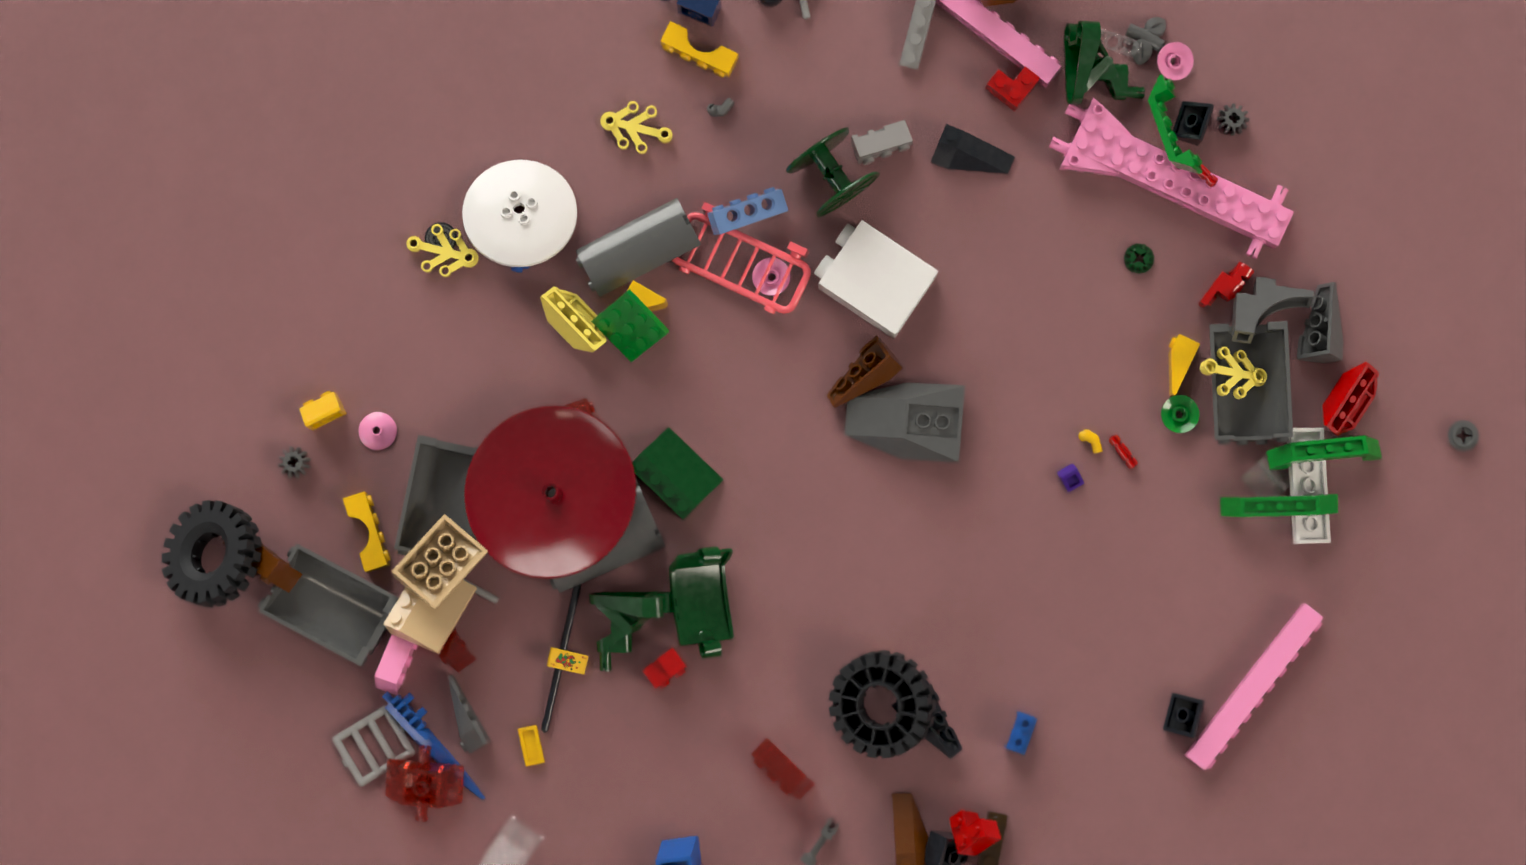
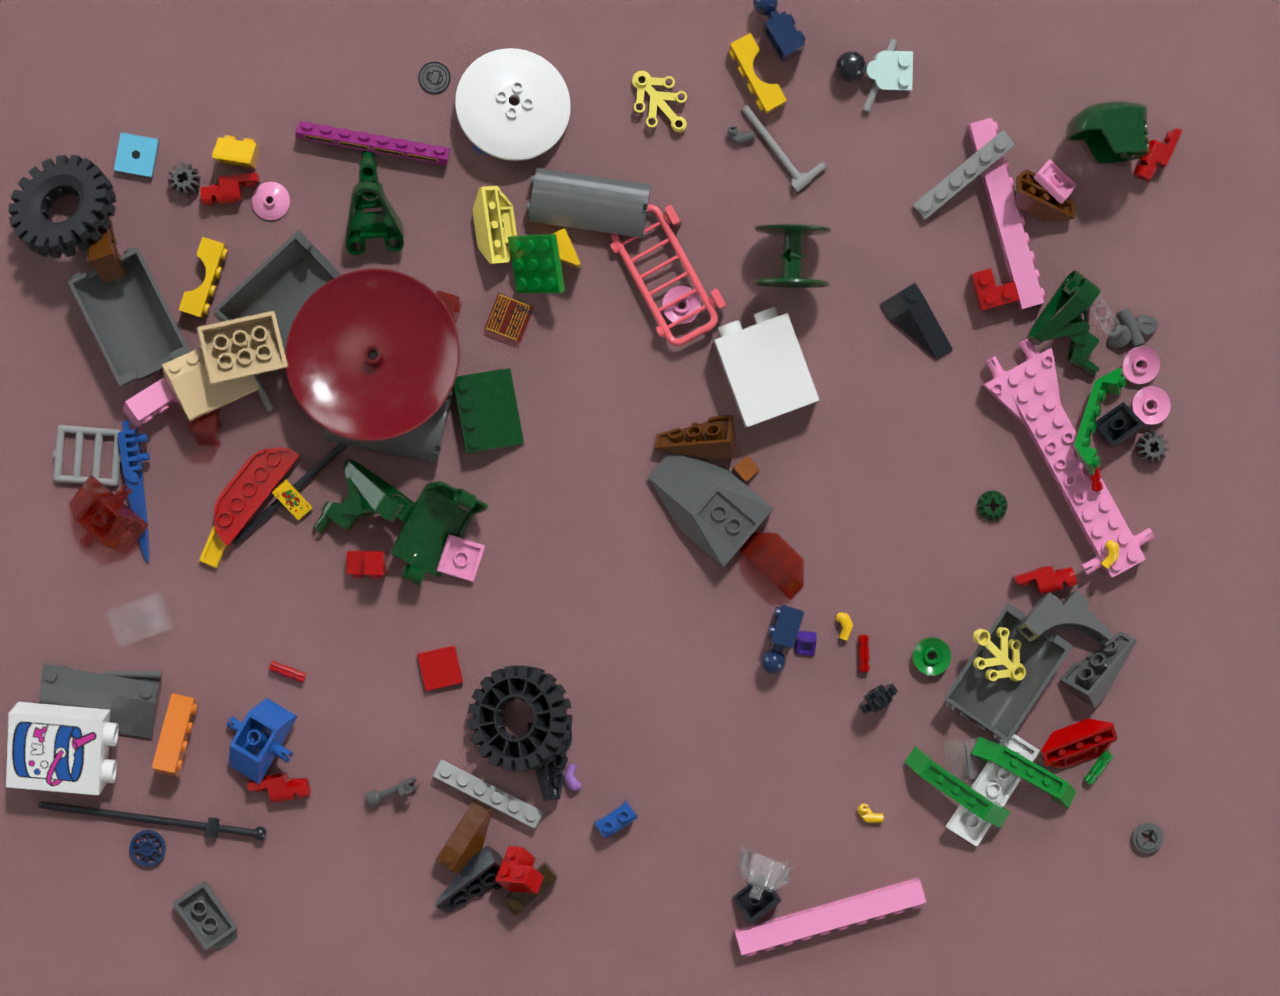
camera: 25 degrees right, 5 degrees up
(242, 471) = (136, 155): none -> medium azure tile
(337, 445) = (229, 188): none -> red plate
(427, 325) = (372, 143): none -> magenta plate
(445, 252) = (430, 92): light yellow plant -> none
(469, 726) = (175, 498): dark grey wedge -> none
(476, 388) = (371, 224): none -> dark green connector
(527, 677) = (250, 490): none -> red plate
(639, 386) = (509, 317): none -> clear red tile
(663, 806) = (287, 671): none -> red axle
(739, 609) = (460, 558): none -> bright pink tile
(775, 205) = (727, 249): medium blue brick -> none
(782, 769) = (402, 710): clear red wedge -> none
(787, 712) = (440, 667): none -> red tile
(794, 109) = (799, 180): none -> light grey bar
(881, 142) = (851, 259): light grey wedge -> none
(901, 788) = (487, 794): none -> light grey plate
(919, 371) = (746, 468): none -> dark orange slope
(959, 727) = (570, 779): none -> medium lavender arm
(997, 428) = (776, 561): none -> clear red wedge
(1045, 482) = (782, 634): none -> dark blue brick
(1161, 478) = (878, 698): none -> black gear
(1172, 688) = (763, 872): none -> clear torso
(1180, 358) = (965, 611): yellow slope -> none
(1210, 78) = (1160, 402): none -> bright pink dish
(1223, 581) = (868, 816): none -> yellow arm
(1265, 225) = (1113, 554): none -> yellow arm
(1381, 407) = (1098, 767): none -> green axle

